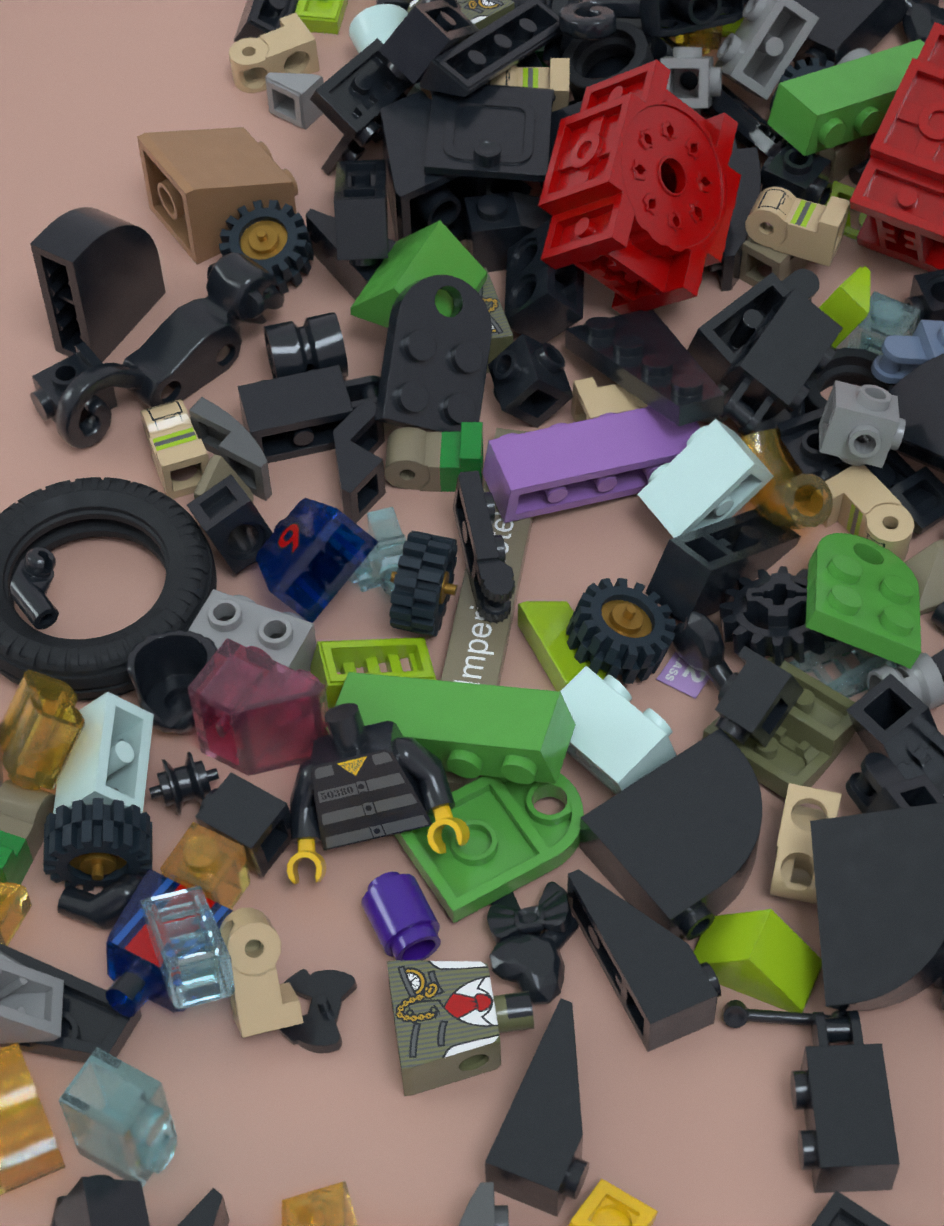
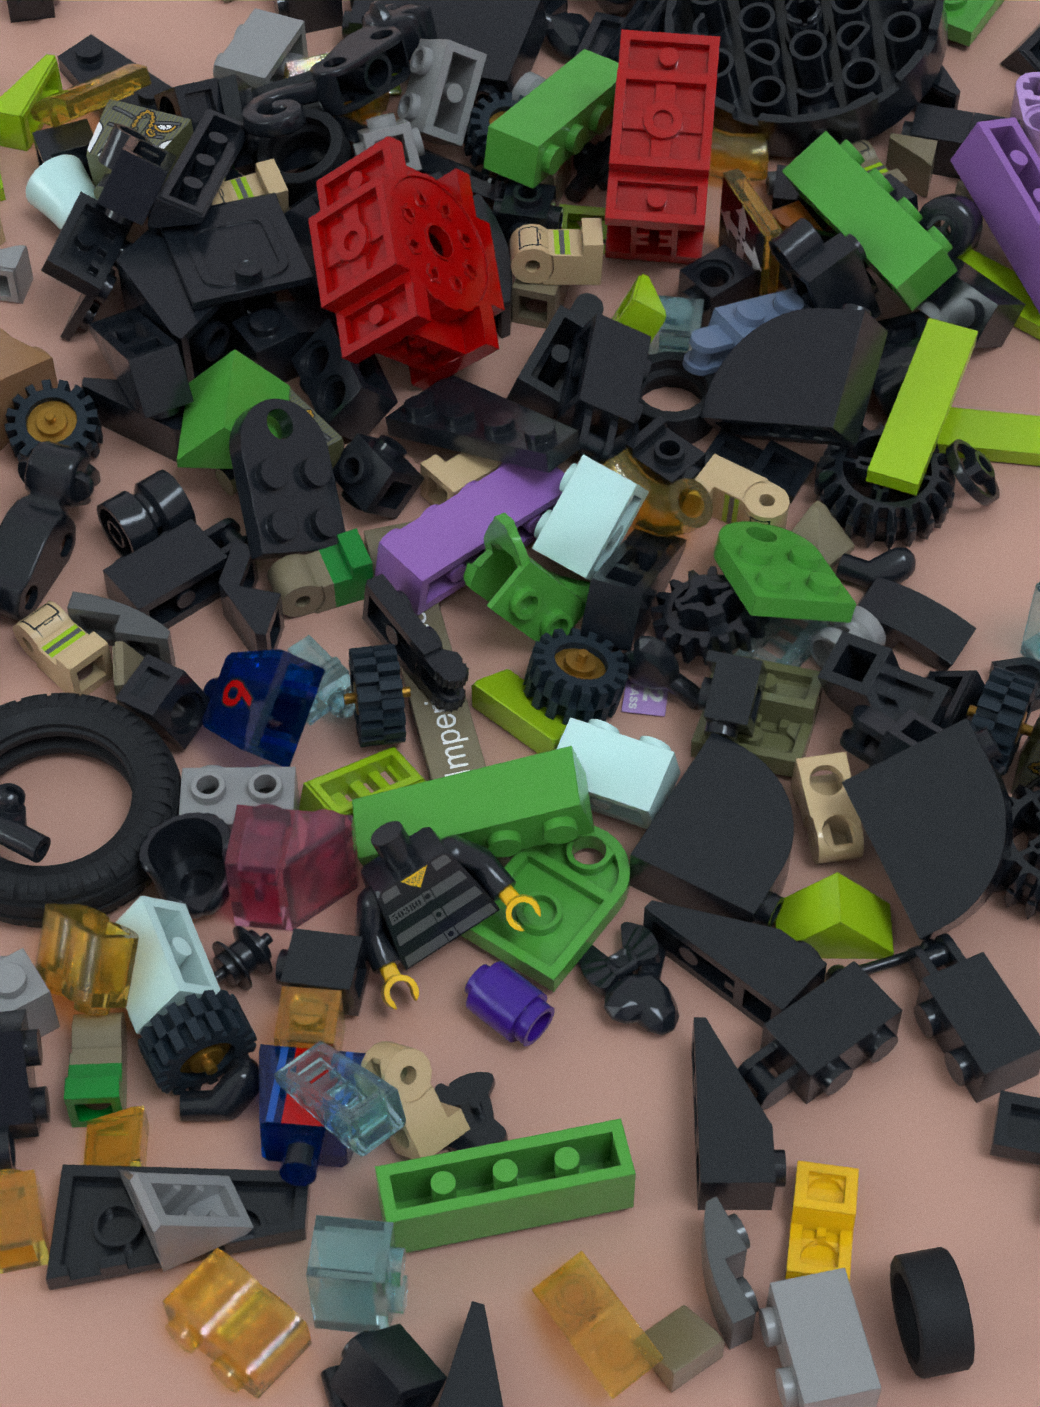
camera: 25 degrees left, 0 degrees up
(303, 1091) = (507, 1186): none -> bright green brick
(450, 1021) = (597, 1070): torso -> none
(607, 528) = (522, 588): none -> bright green piece
(682, 1069) = (823, 1038): none -> black brick
(860, 424) = (706, 419): light grey brick -> none

